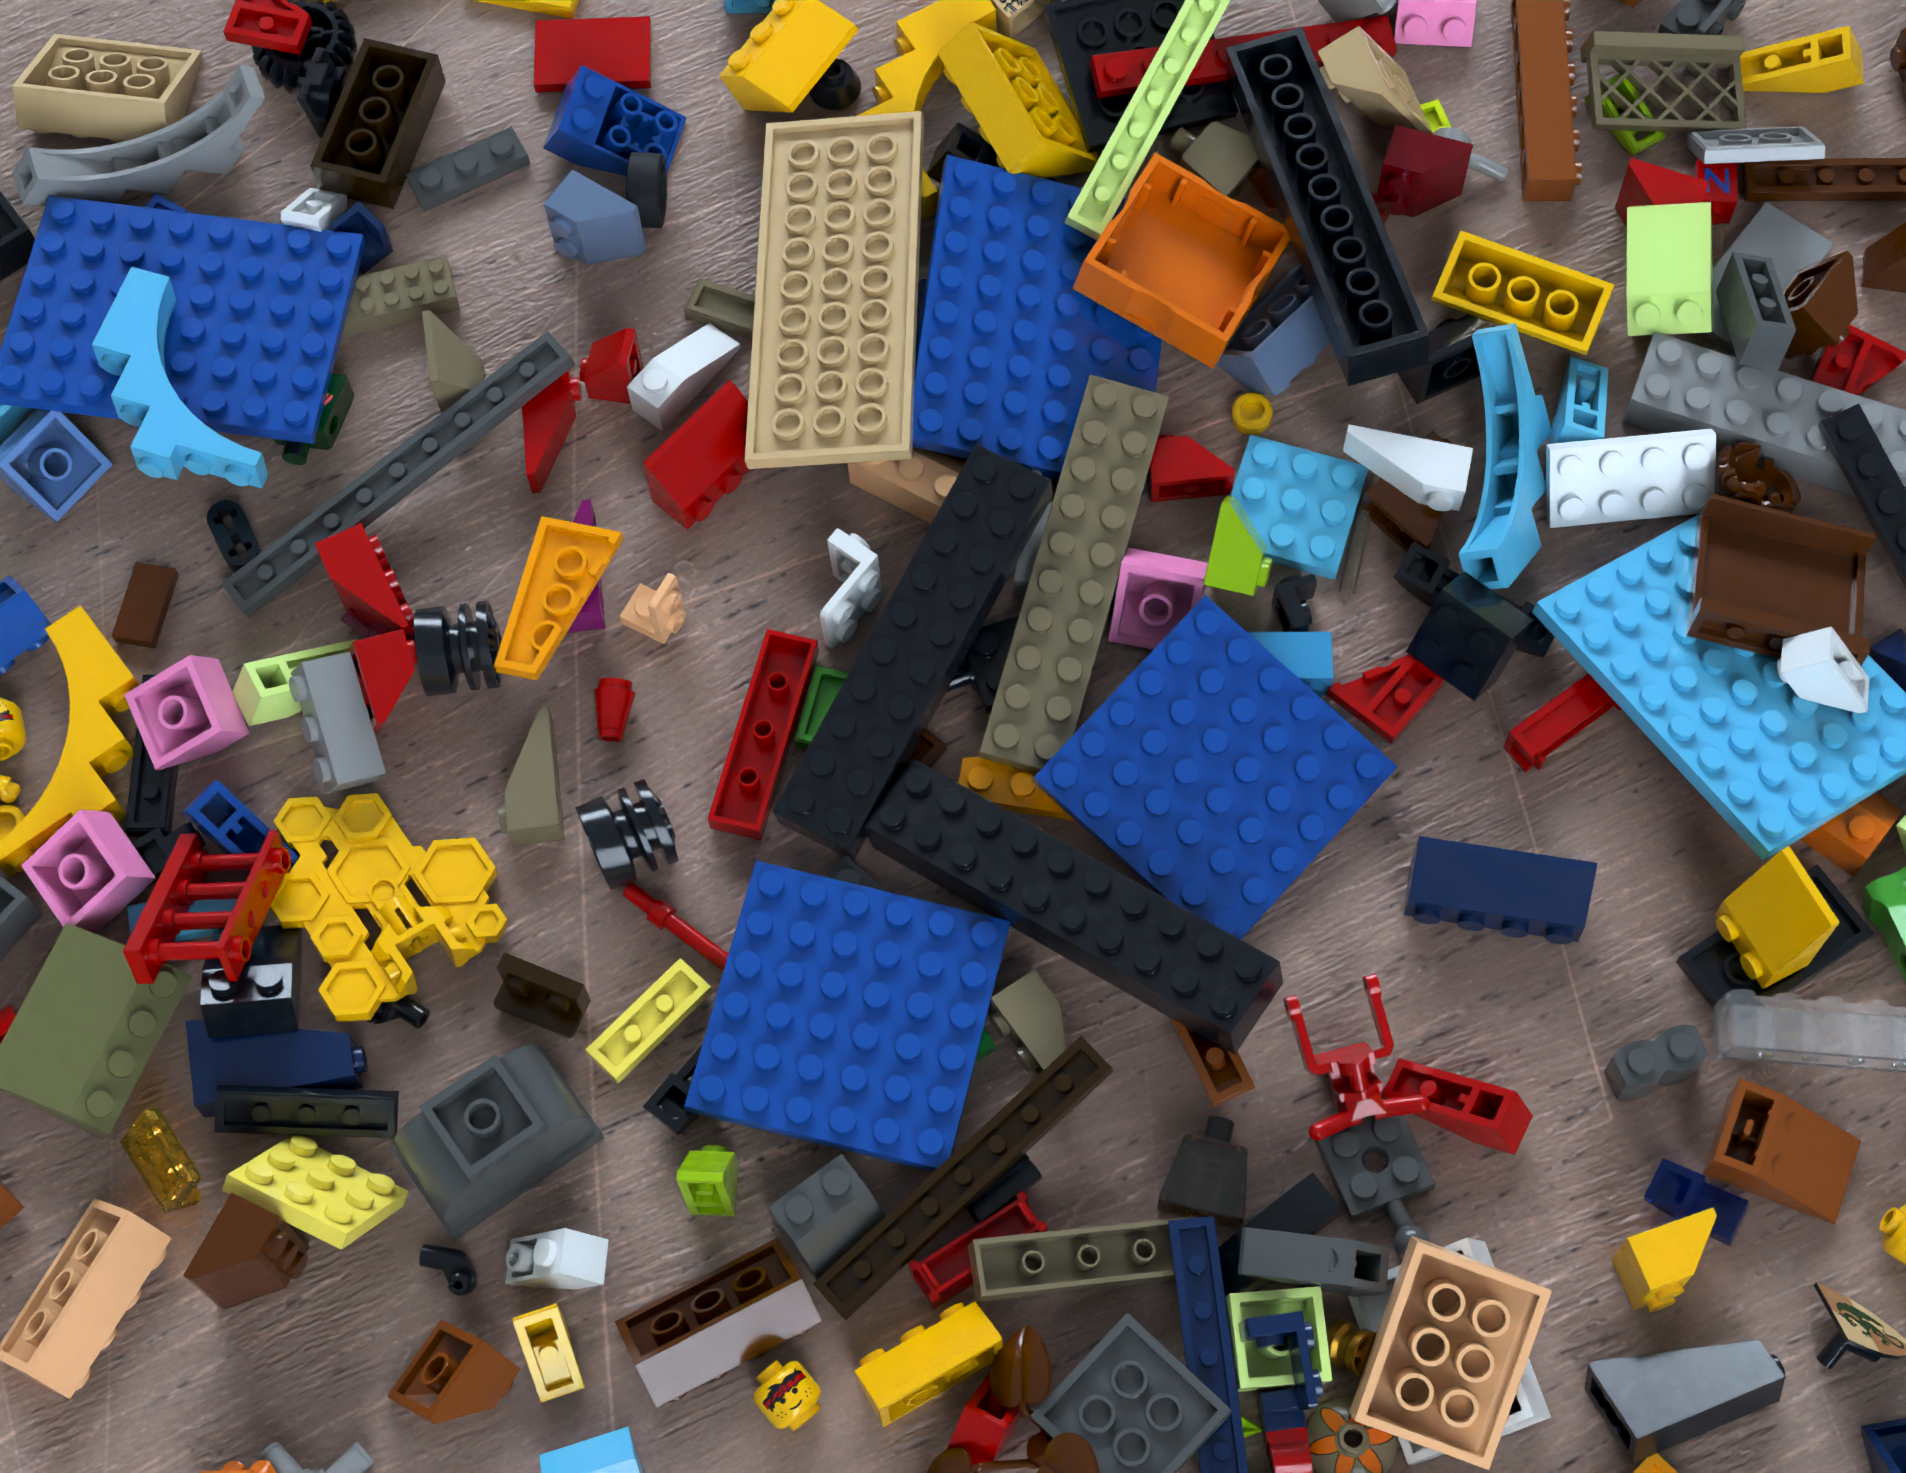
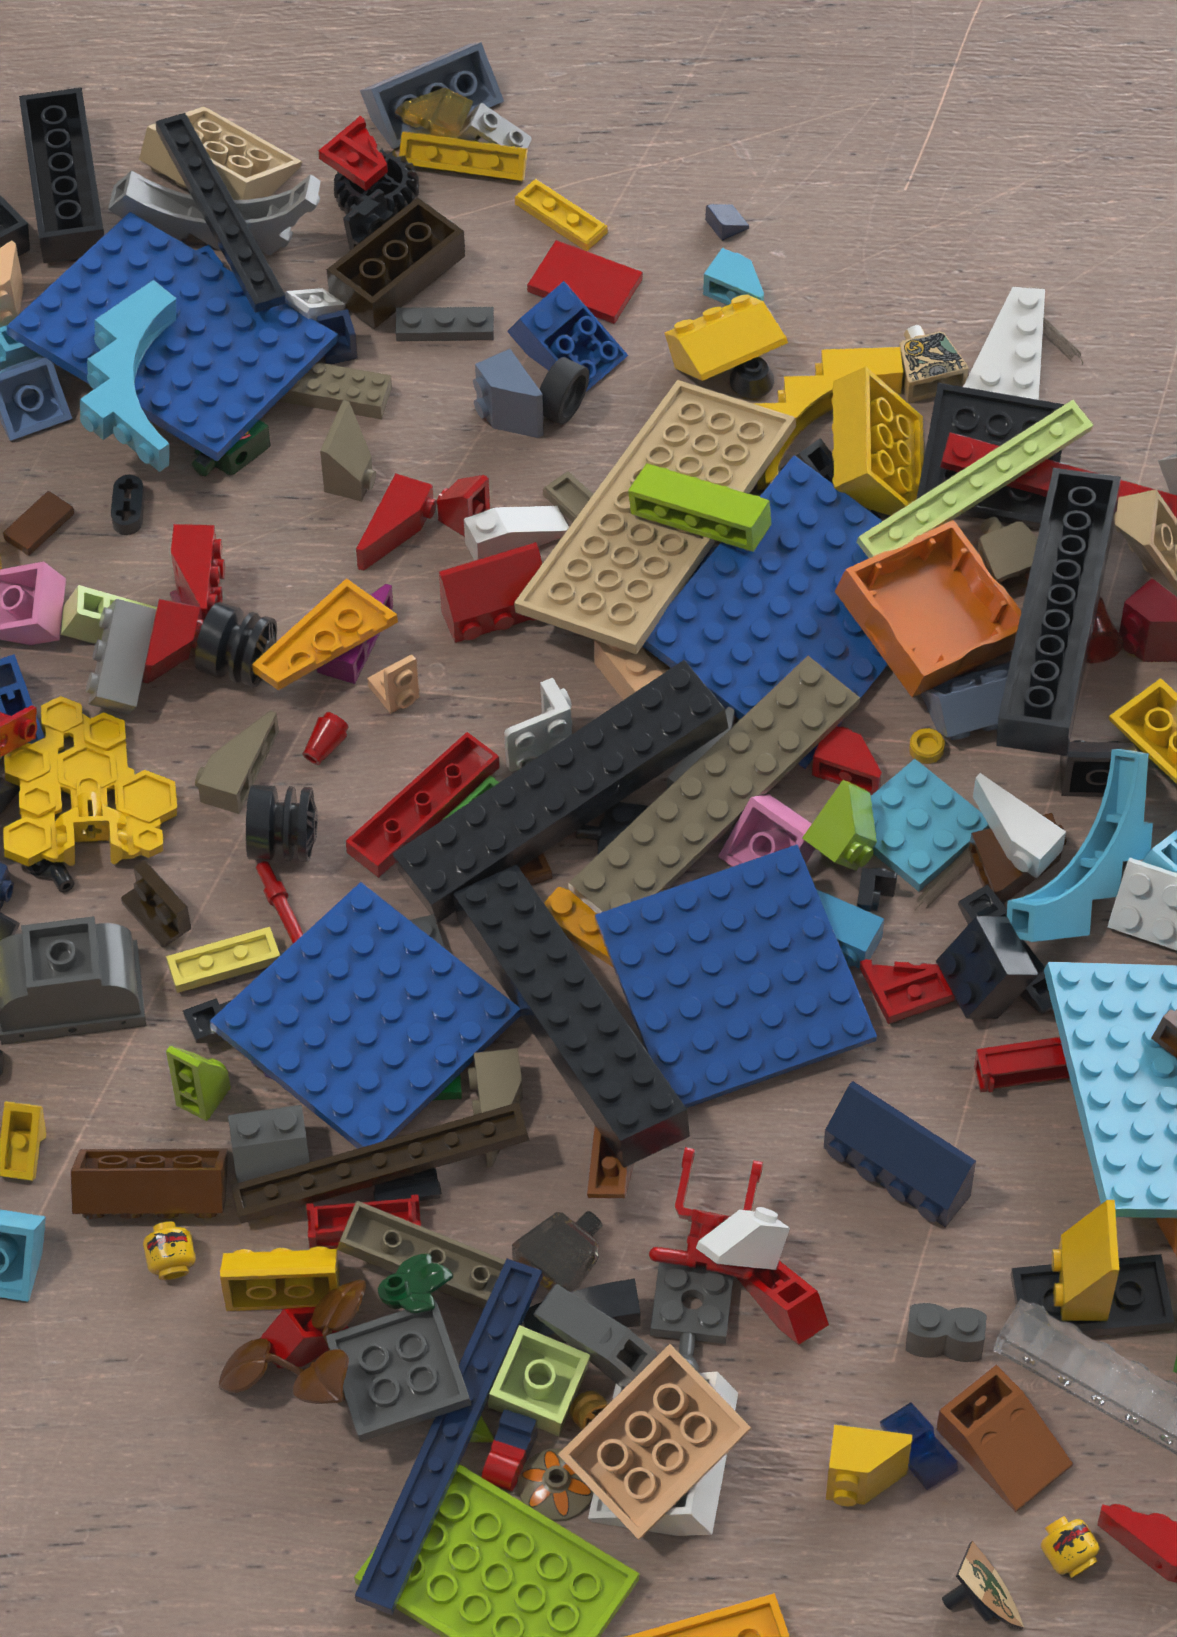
camera: 25 degrees right, 10 degrees down
(156, 152) = (220, 213): none -> black plate
(400, 472) = (271, 506): dark grey plate -> none
(557, 1260) = (63, 1086): white slope -> none
(887, 260) = (700, 507): none -> lime brick
(1098, 1302) = (413, 1284): none -> dark green plate
(1269, 1332) = (531, 1360): dark blue bracket -> none
(1407, 1070) = (747, 1240): none -> white slope
(1682, 1393) = (822, 1565): slope -> none

